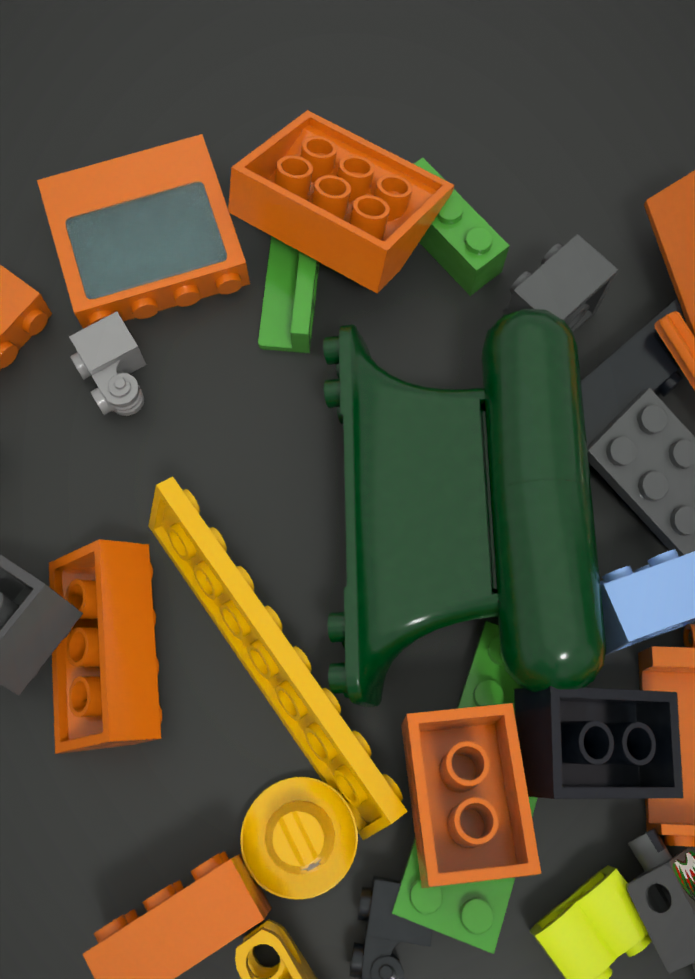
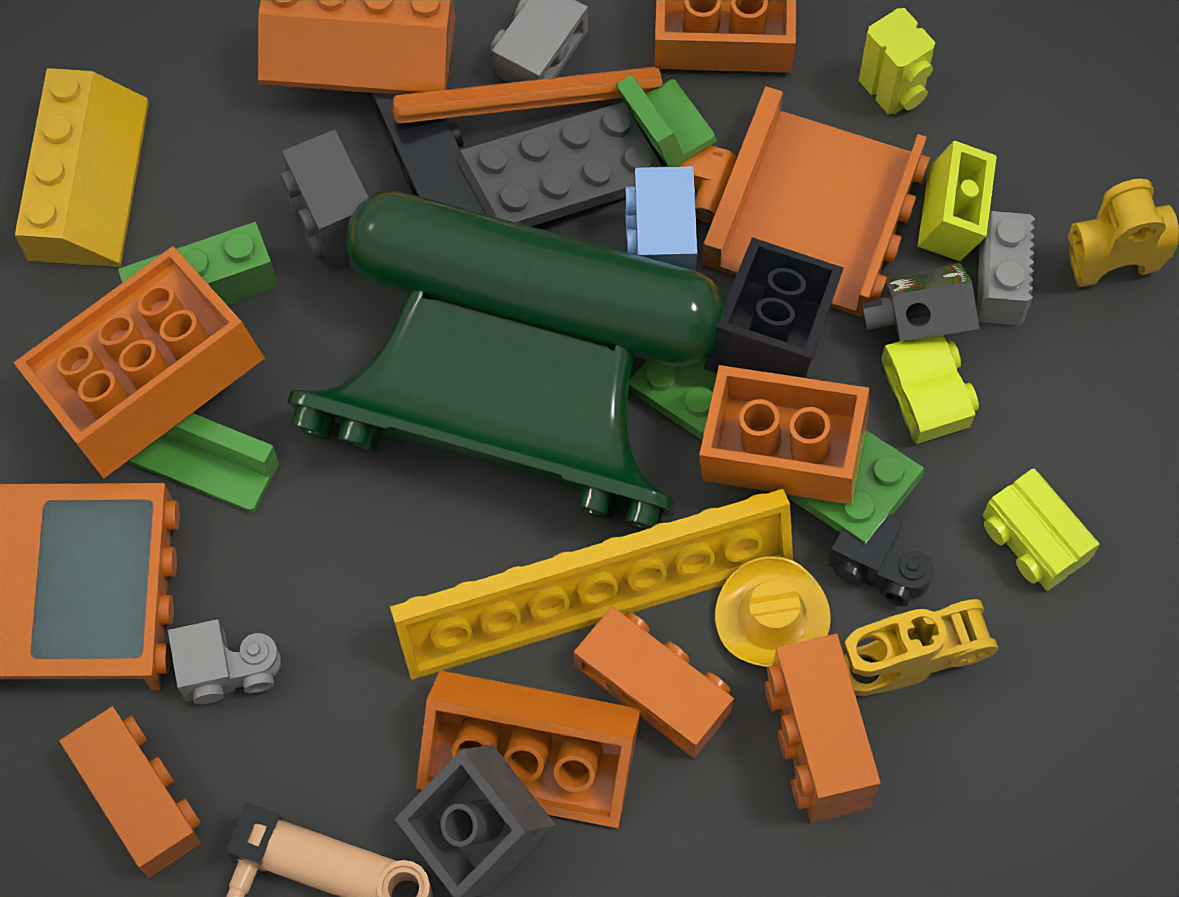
camera: 70 degrees left, 5 degrees down
(195, 744) = (654, 678): none -> orange brick
(511, 106) = (81, 170): none -> yellow slope

